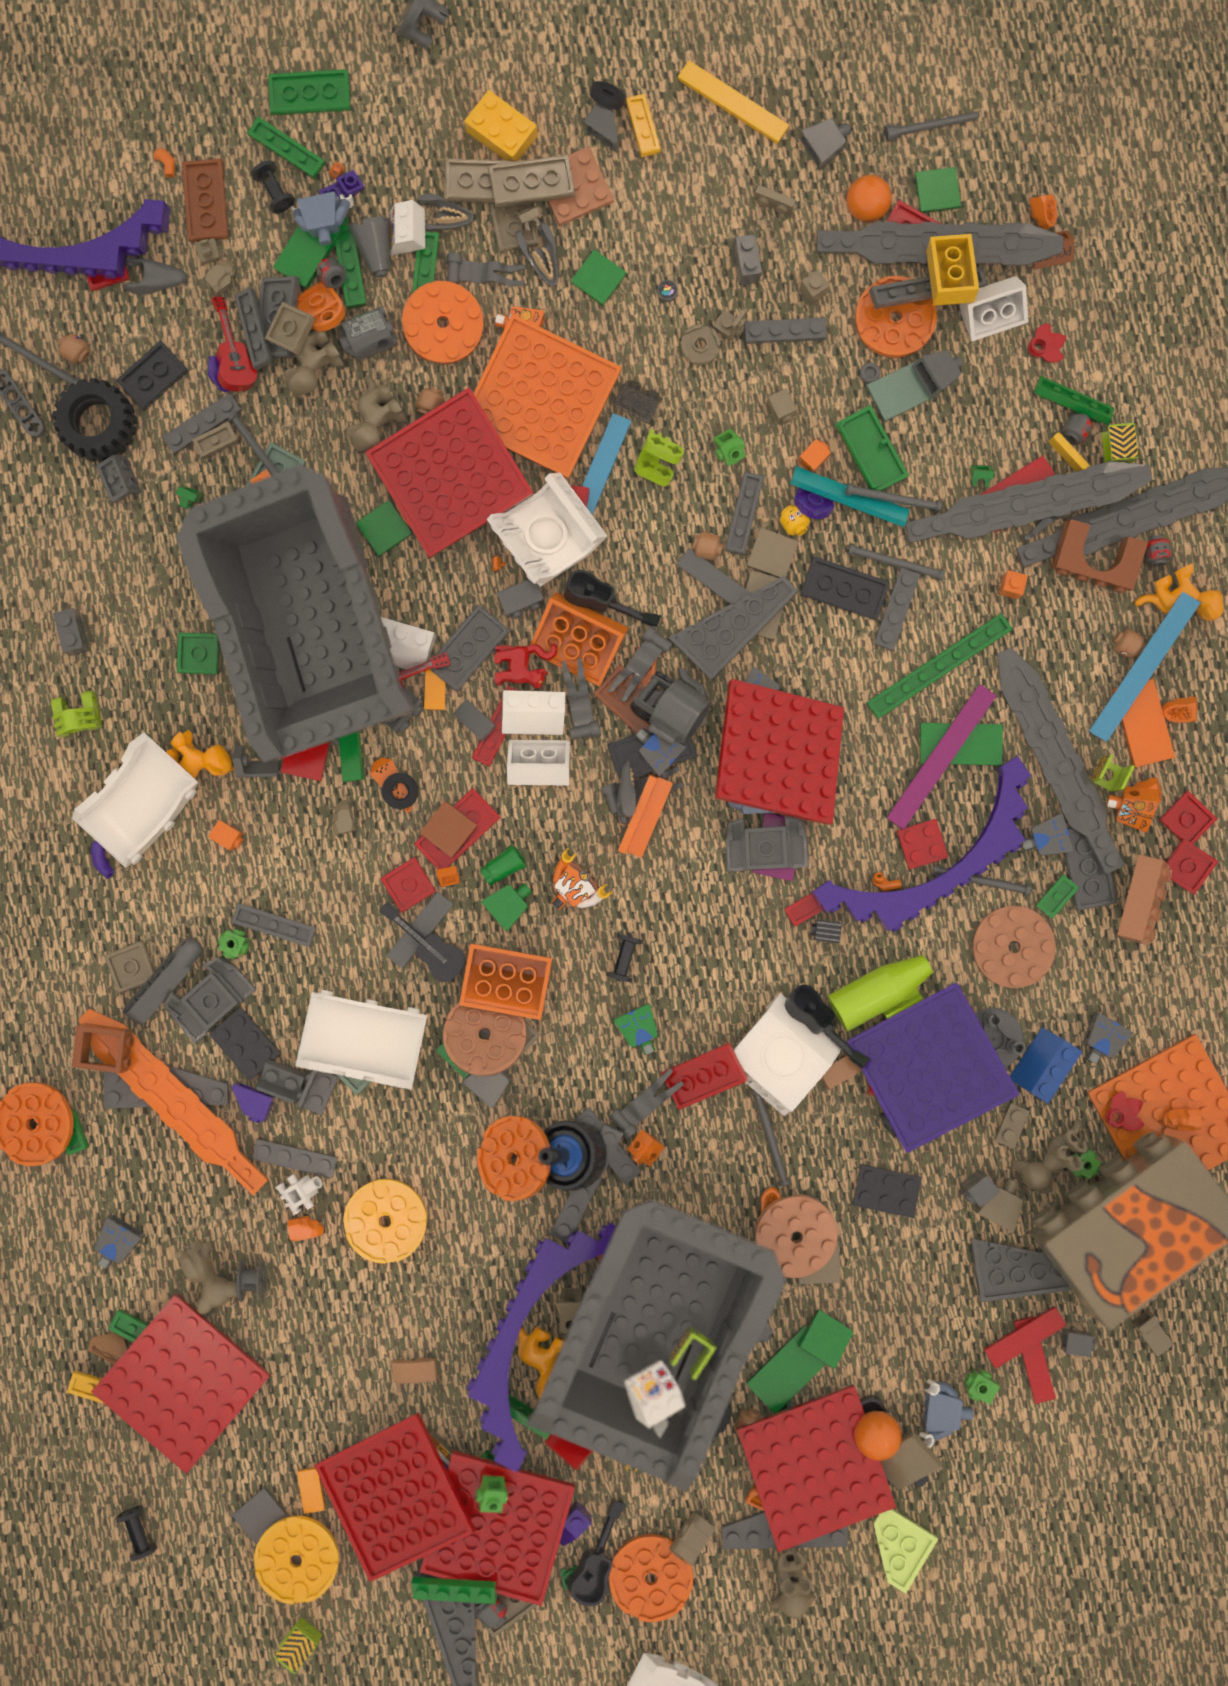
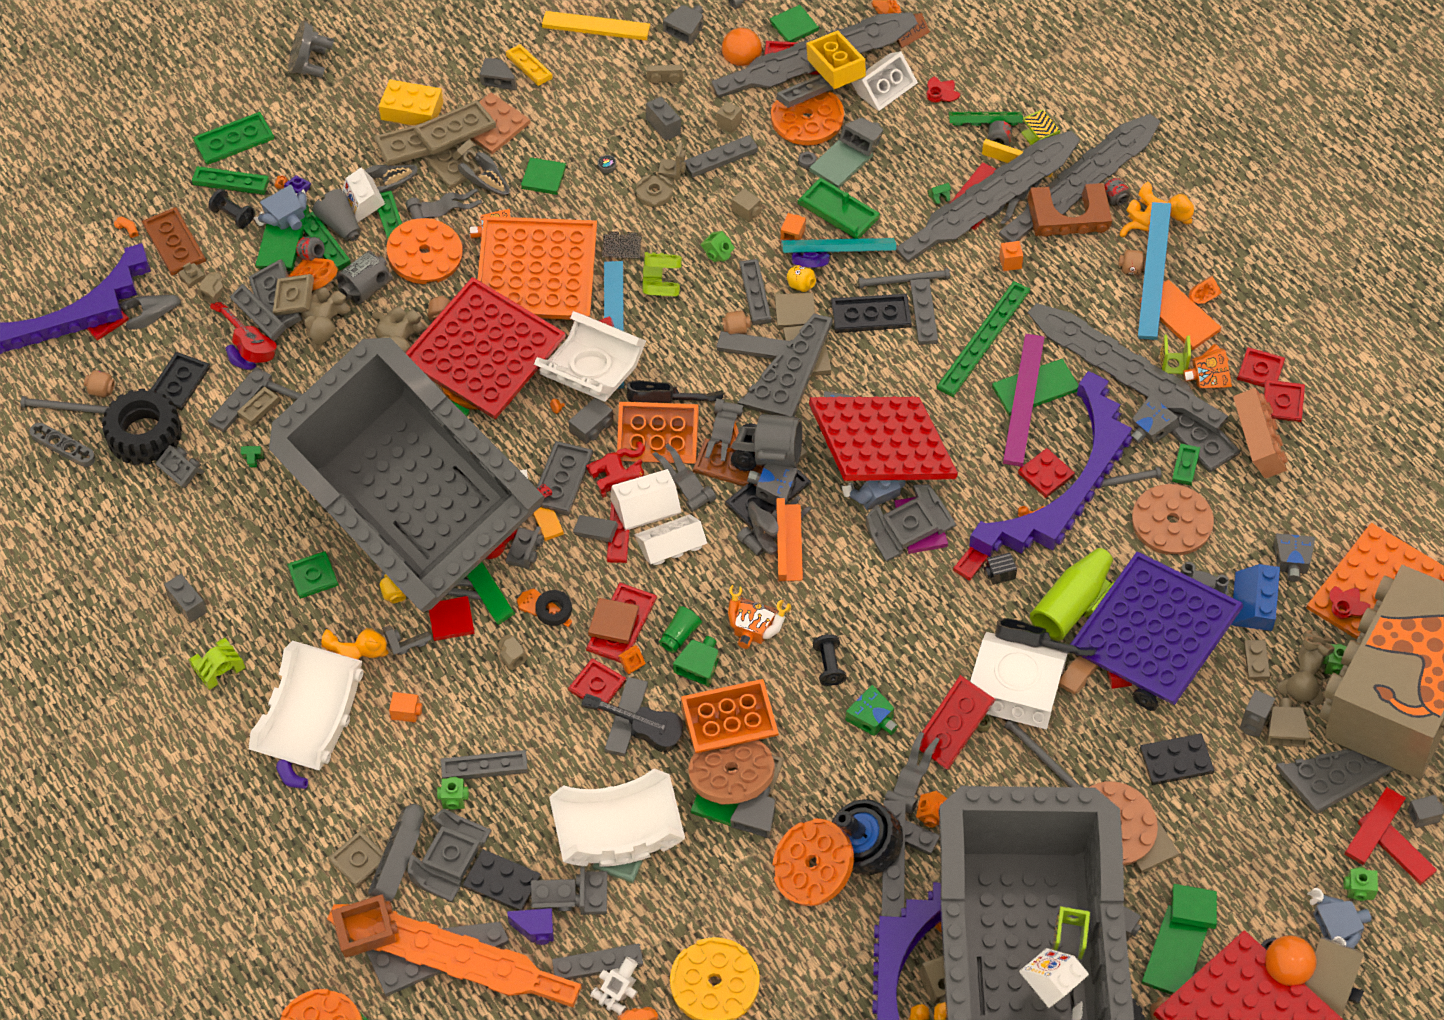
camera: 25 degrees left, 30 degrees down
(607, 95) = (490, 52): black tyre -> none
(850, 489) = (875, 232): dark grey bar -> none

